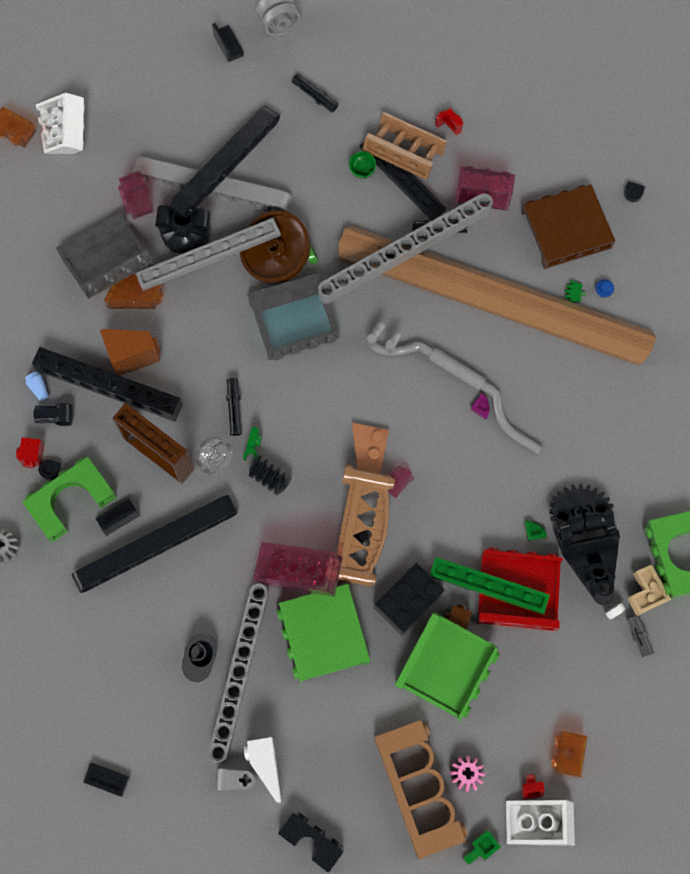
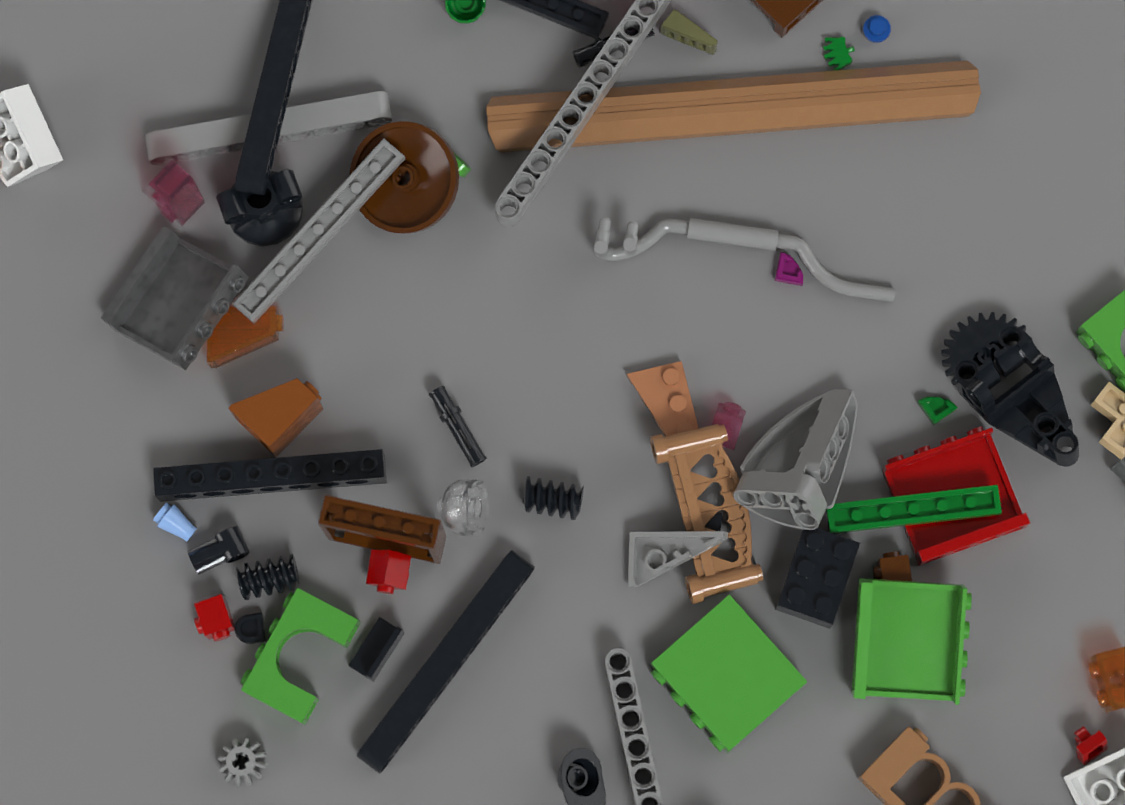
camera: 20 degrees left, 5 degrees up
(73, 444) = (268, 577): none -> black piece
(147, 472) = (388, 570): none -> red brick
(254, 440) = (510, 459): green plate -> none
(293, 317) = (476, 264): panel -> none
(298, 568) = (655, 606): clear pink brick -> none
(320, 537) = (659, 552): none -> light grey wing
(432, 523) = (800, 462): none -> light grey panel
(462, 778) = (1001, 756): bright pink gear -> none
(486, 238) = (685, 31): none -> olive slope
(615, 611) = (1090, 465): white tile -> none

